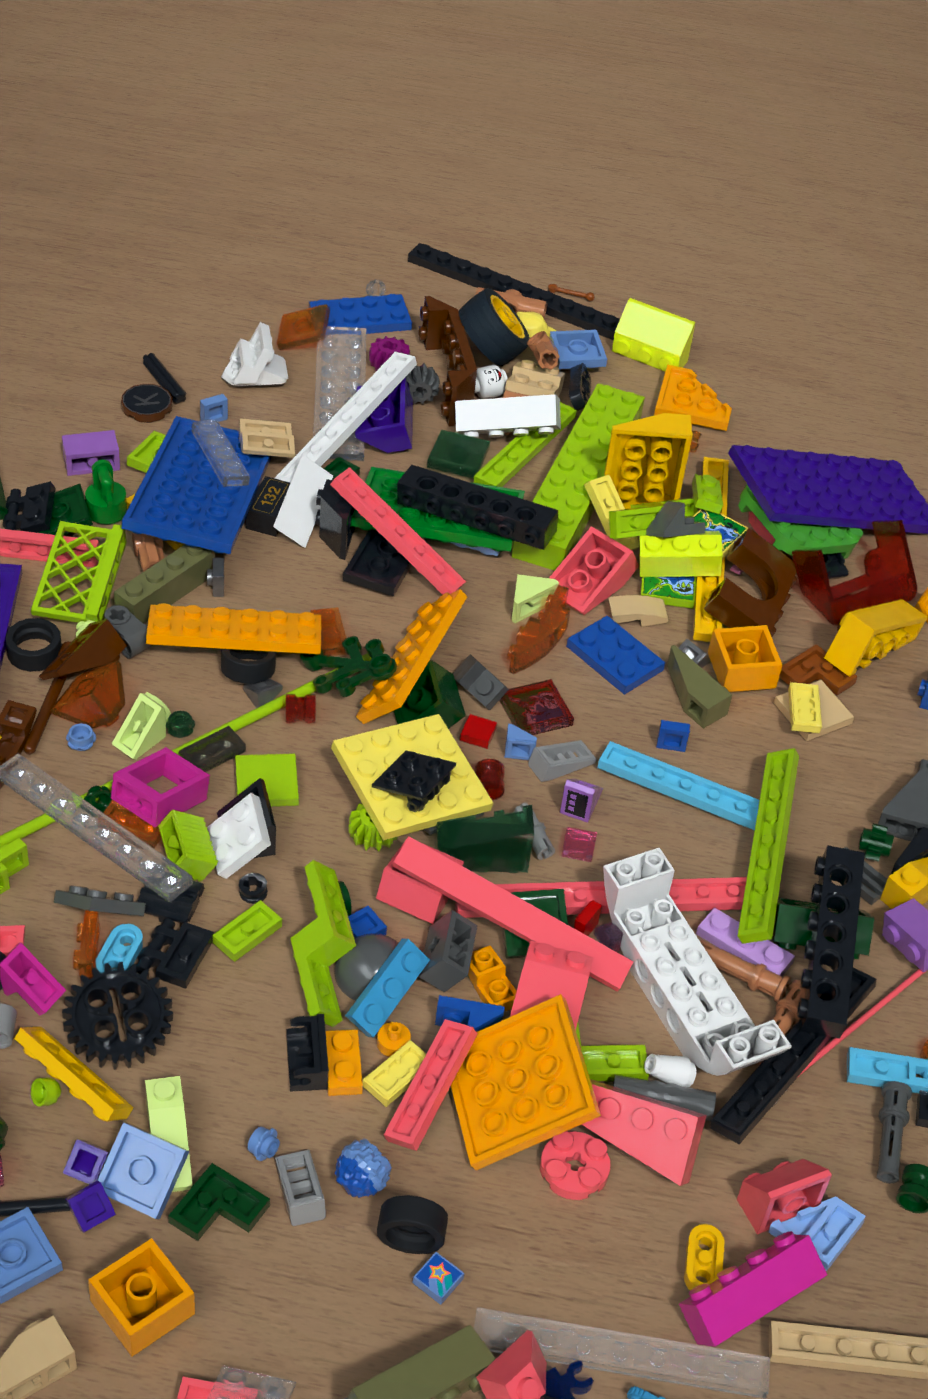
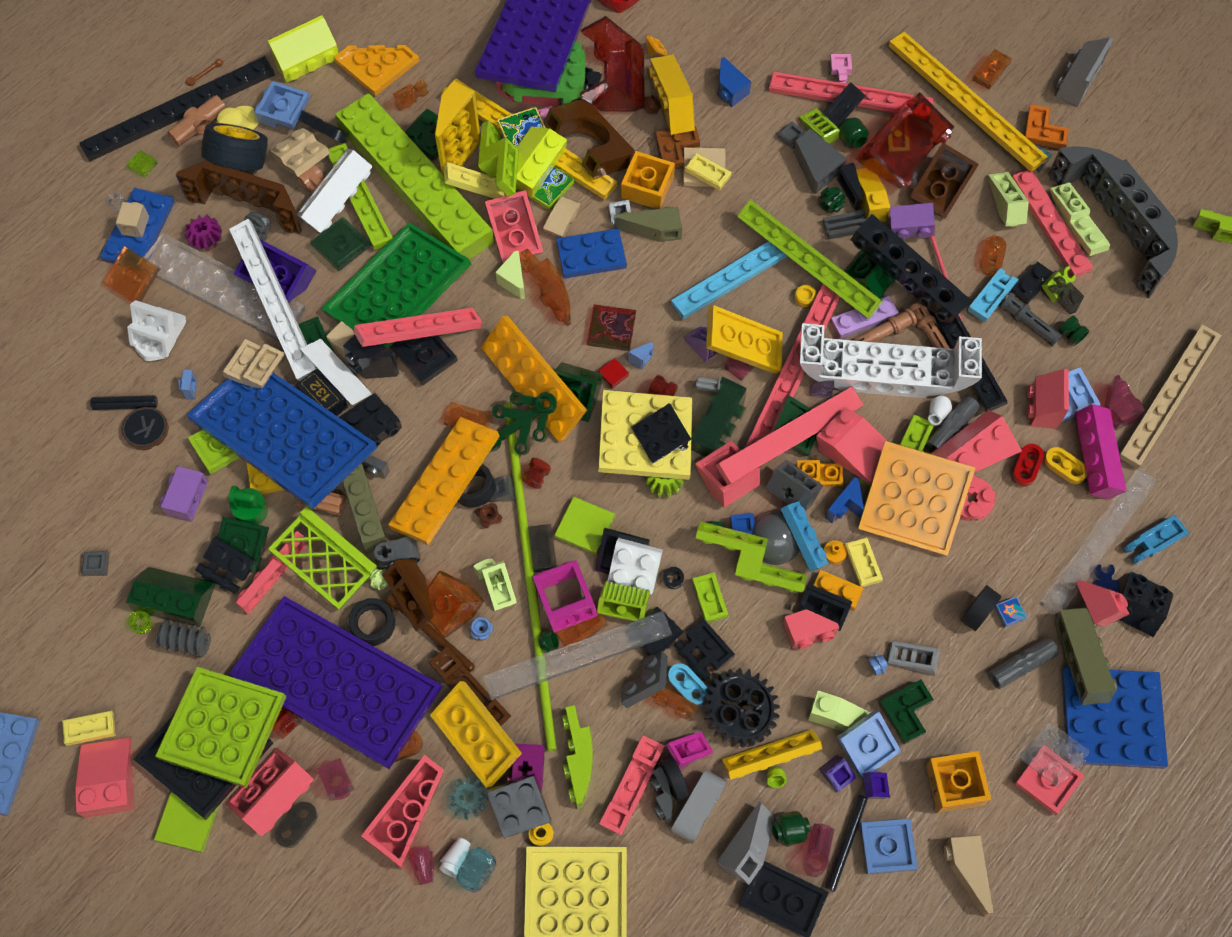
camera: 55 degrees left, 20 degrees up
(180, 724) = (509, 553): clear green plate -> none
(220, 453) = (257, 403): clear plate -> none
(223, 691) = (489, 509): none -> copper plate
(264, 1044) = (808, 627): none -> coral slope
(267, 557) = (373, 419): none -> black plate
(360, 298) = (132, 219): none -> tan brick
(362, 1169) = (927, 617): piece -> none
(368, 1319) = (1023, 663): none -> dark grey axle
(430, 1085) = (887, 548): coral plate -> none
(434, 289) = (142, 163): none -> clear neon green tile
(477, 506) = (431, 252): black brick -> none
(480, 682) = (572, 349): dark grey slope -> none
(490, 382) = (283, 176): white head -> none
(544, 350) = (281, 128): nougat piece -> none
(547, 769) = (668, 336): light grey slope -> none
(588, 918) = (807, 395): red tile -> none
(601, 811) = (744, 339): none -> yellow plate
(669, 1209) = (1027, 466): none -> red plate
(673, 522) = (522, 151): dark grey slope -> none
(673, 735) = (685, 260): blue plate -> none
(707, 493) = (492, 112): lime plate -> none
(725, 869) = (805, 296): none -> yellow tile
(847, 1292) = (1122, 403): none -> clear pink slope

